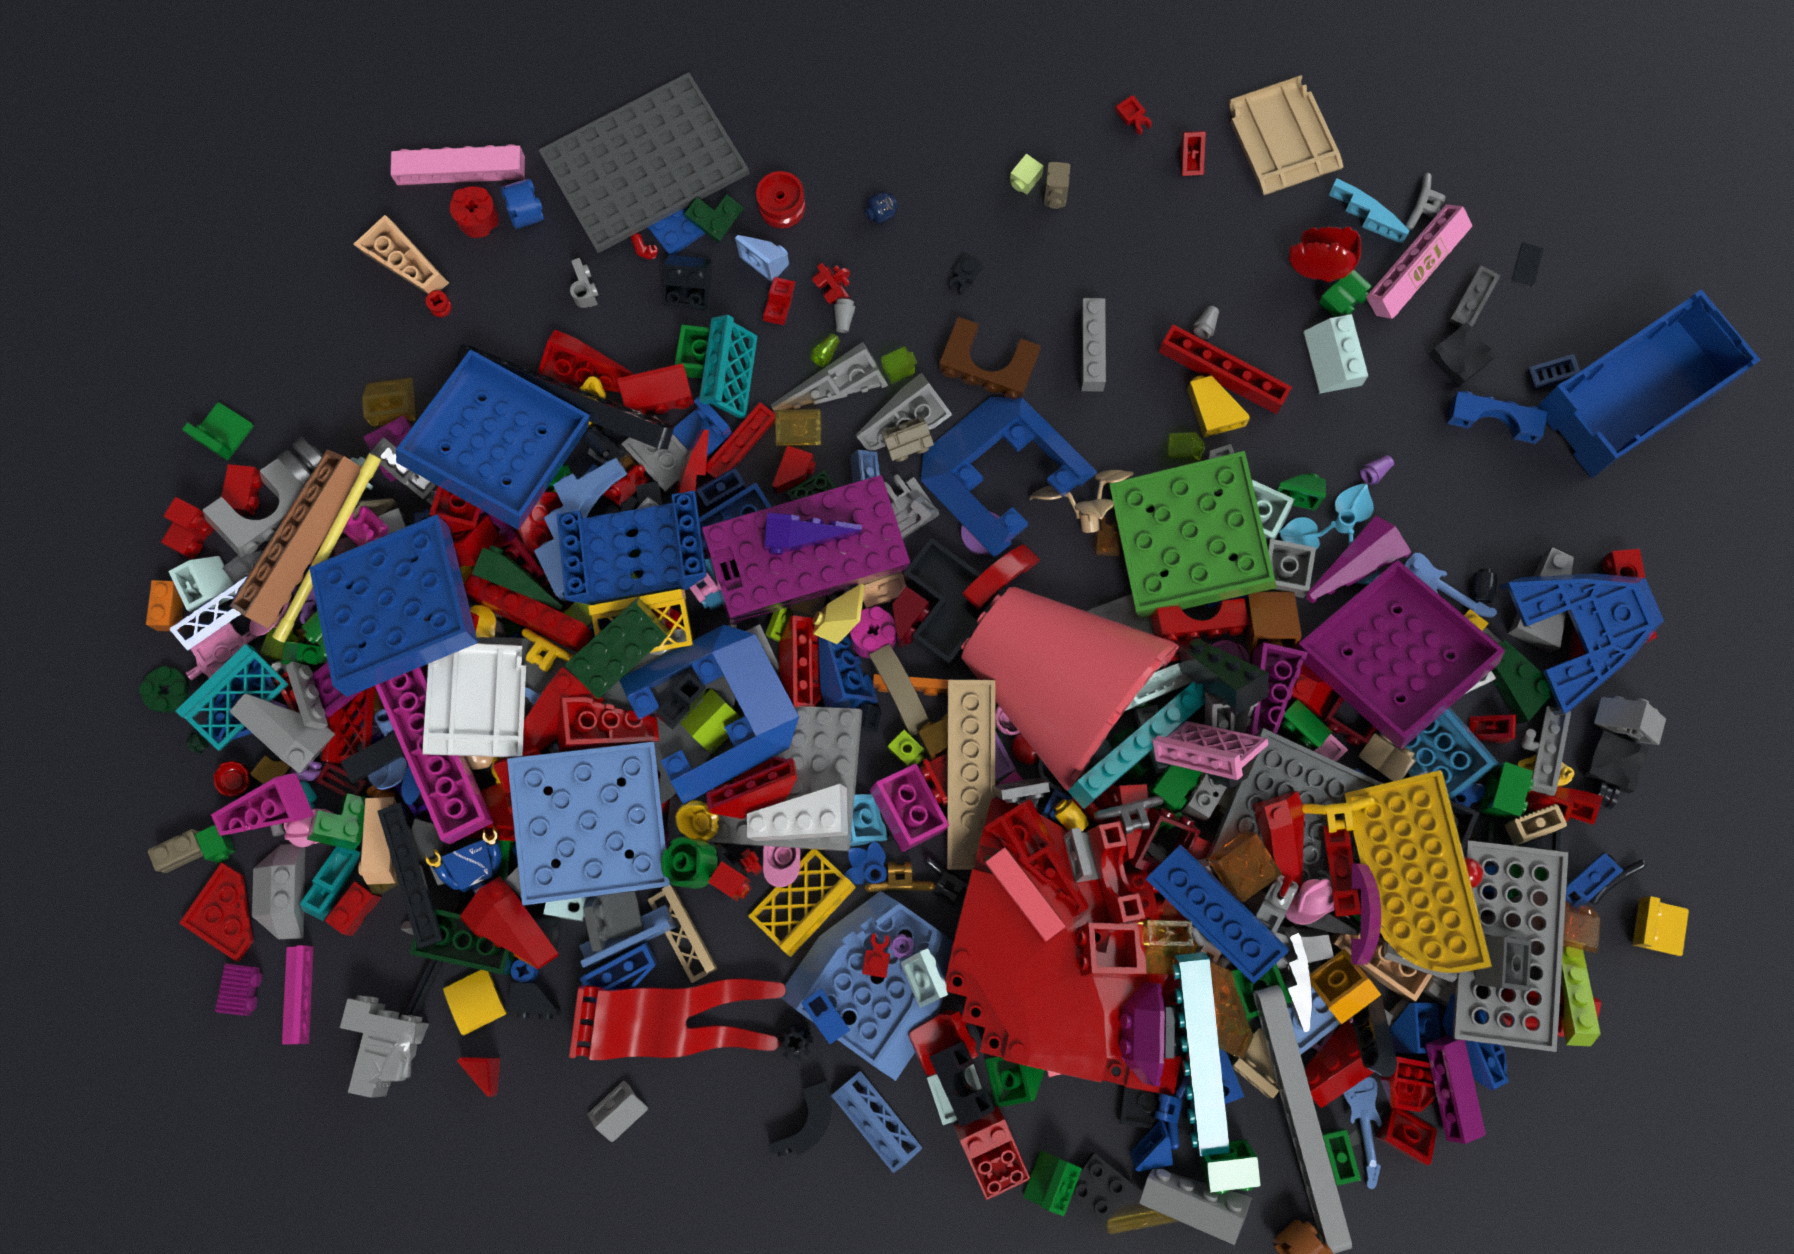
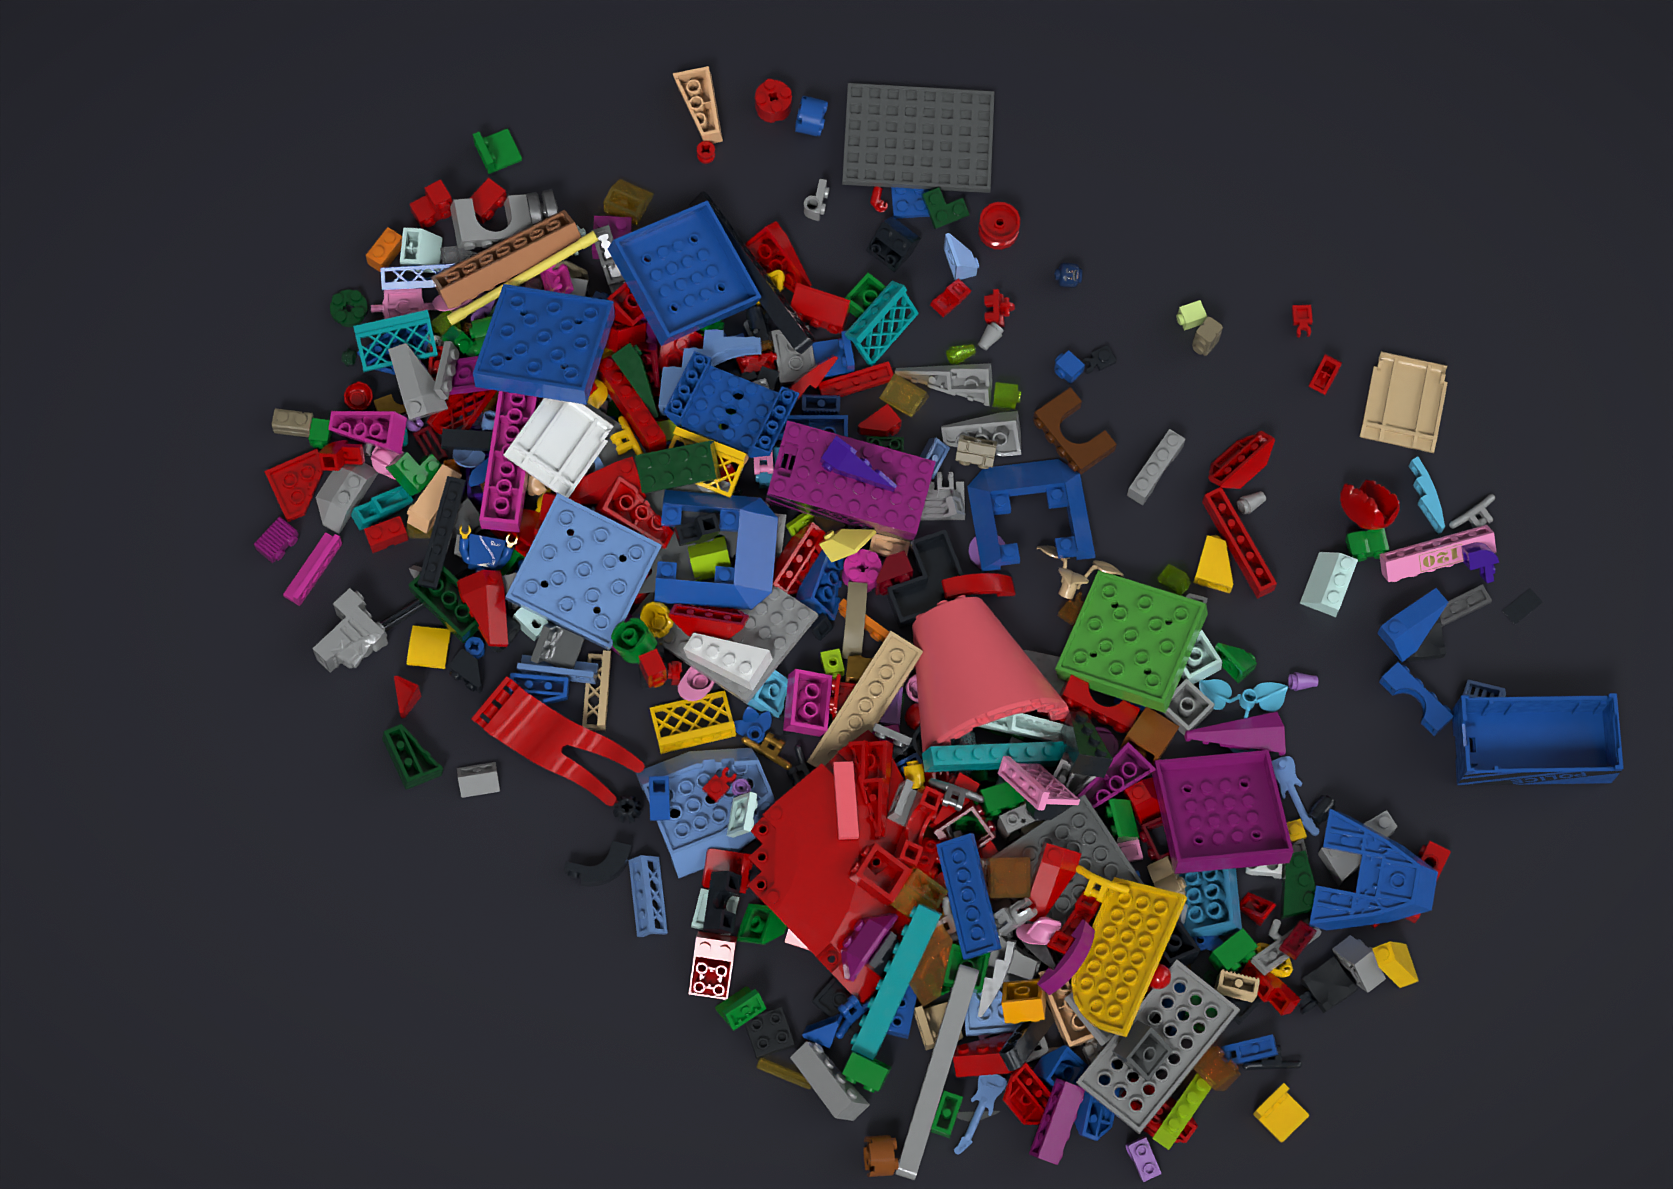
camera: 25 degrees right, 5 degrees down
(247, 854) = (338, 453): none -> red brick
(457, 164) = (783, 59): bright pink brick -> none
(530, 1139) = (409, 758): none -> dark green wedge
(940, 298) = (1068, 366): none -> blue brick
(1171, 286) = (1242, 461): none -> red wedge
(1408, 1135) = (1005, 1134): red slope -> none
(1448, 347) = (1411, 626): none -> blue wedge
(1466, 241) = (1480, 556): none -> dark purple brick
(1561, 737) = (1297, 940): none -> dark red plate
(1562, 1068) = (1143, 1158): none -> medium lavender plate
(1667, 696) = (1396, 963): none -> yellow slope

